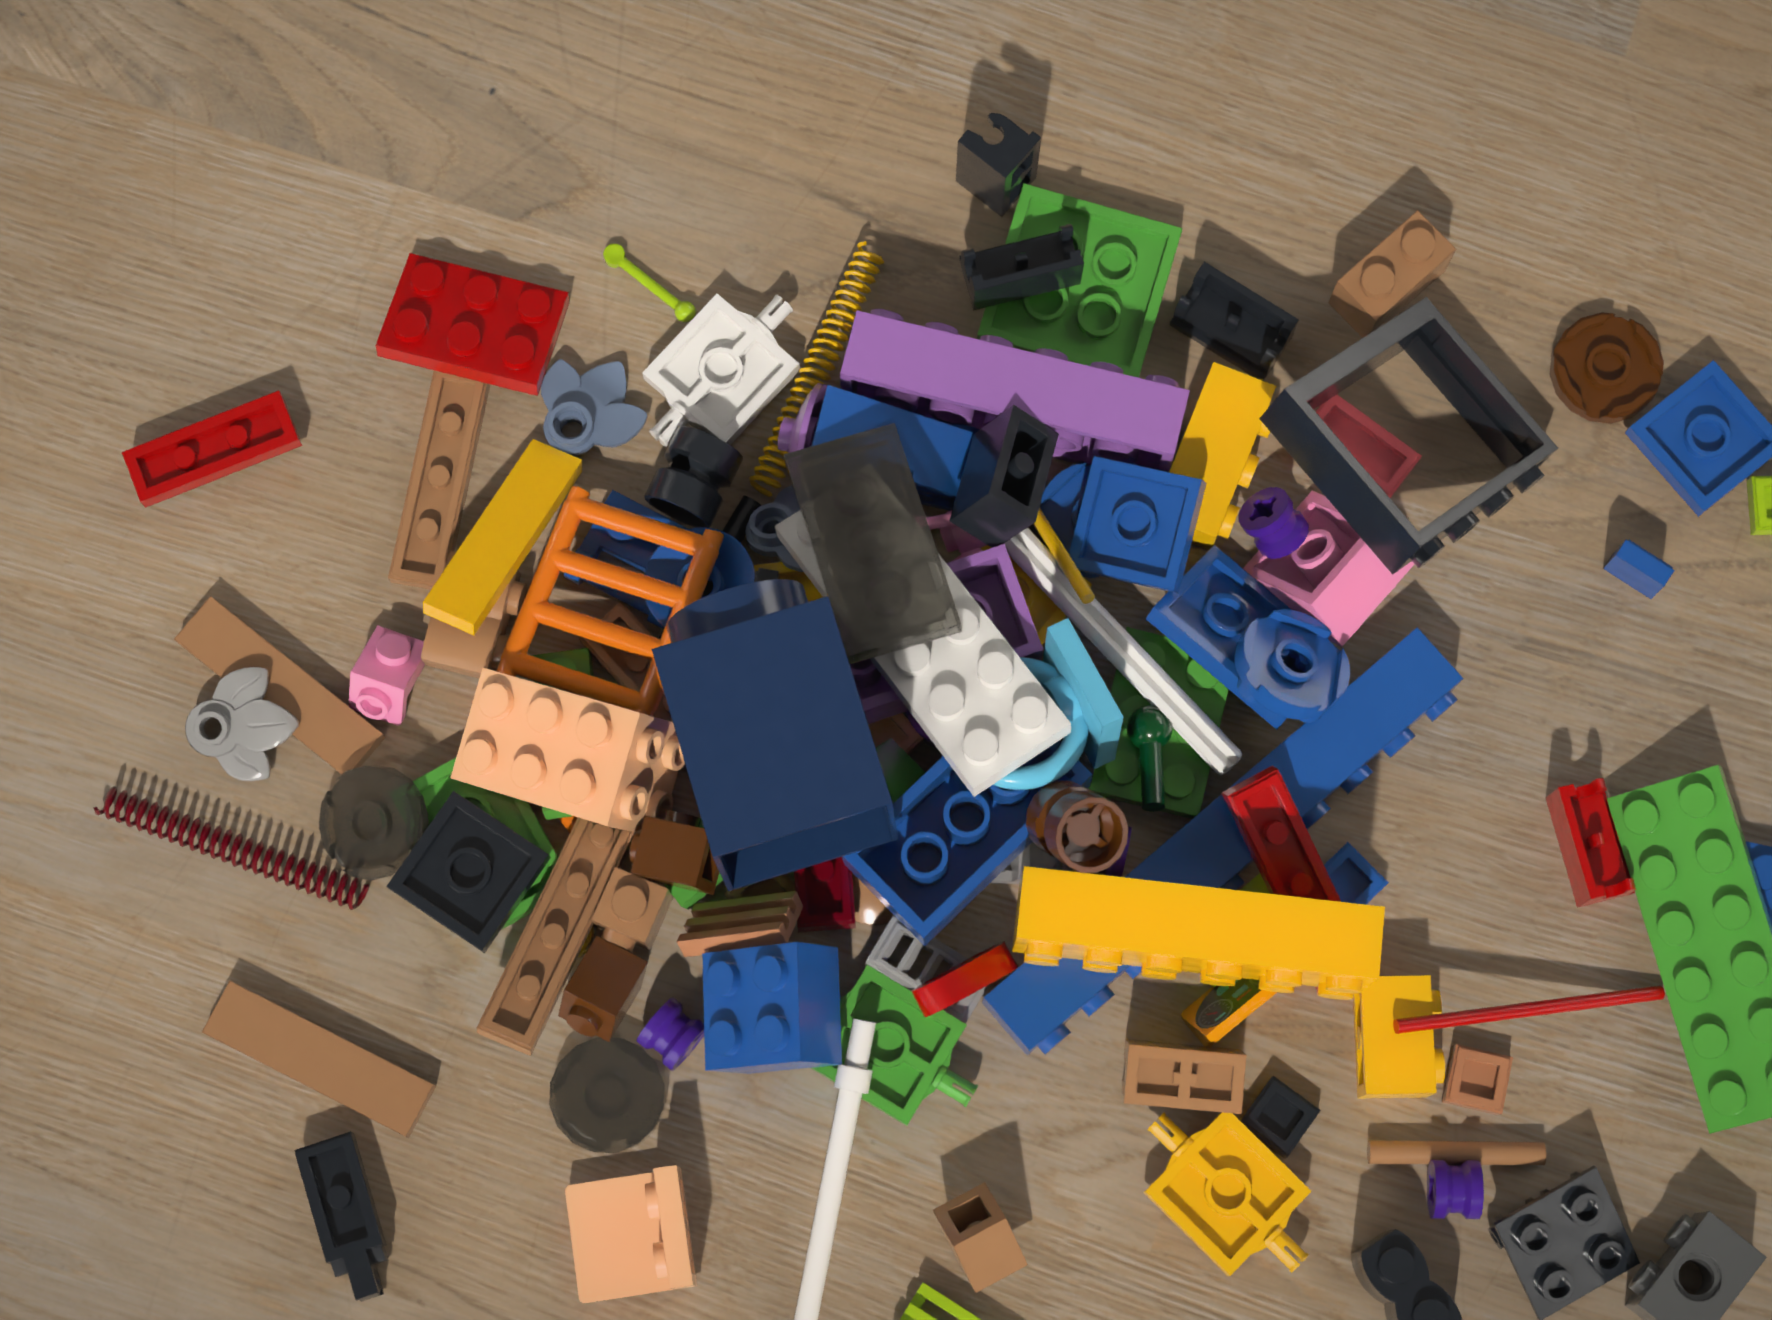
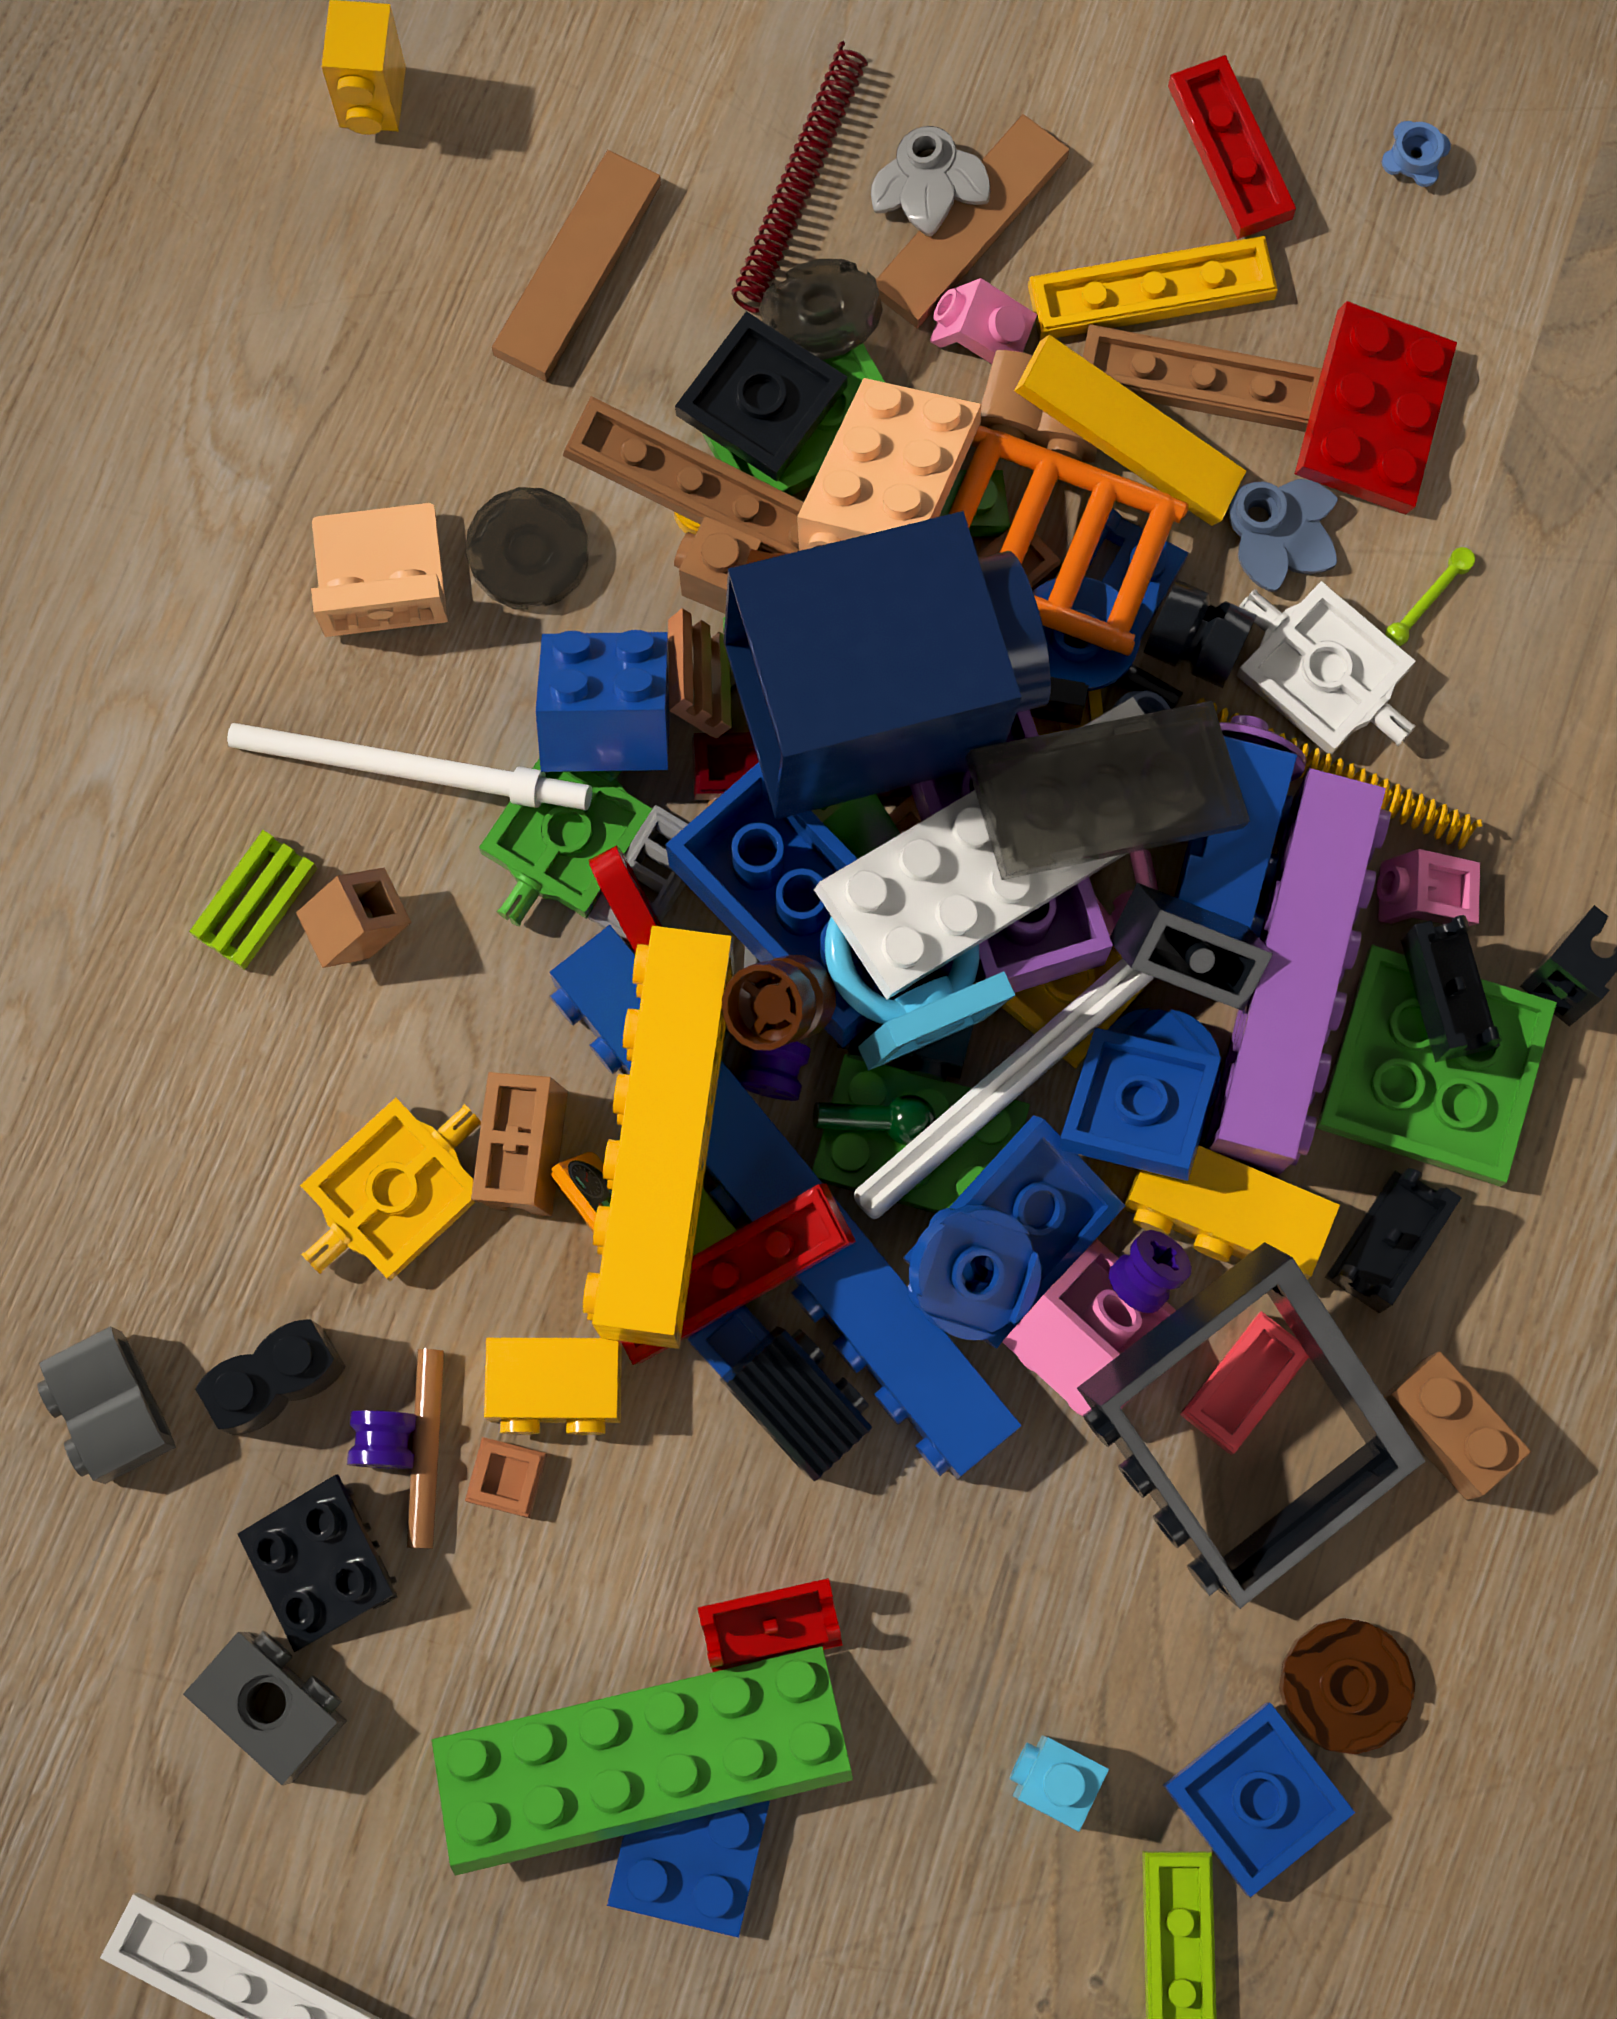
camera: 90 degrees right, 0 degrees up
(119, 1269) = (363, 66): none -> yellow brick
(216, 270) = (1422, 138): none -> medium blue plate
(344, 1211) = (416, 289): black hinge -> none
(349, 523) = (1153, 287): none -> yellow tile
(602, 989) = (633, 534): reddish brown brick -> none
(671, 1034) = (587, 605): dark purple wheel -> none
(924, 283) = (1428, 888): none -> bright pink bracket
(1063, 558) = (1118, 1017): yellow axle -> none
(1279, 1117) = (474, 1253): black tile -> none
(1404, 821) = (798, 1402): none -> black brick
(1528, 1009) = (577, 1534): red axle -> none
(1639, 568) = (1096, 1702): blue tile -> none
(1708, 597) = (1057, 1781): none -> medium azure brick

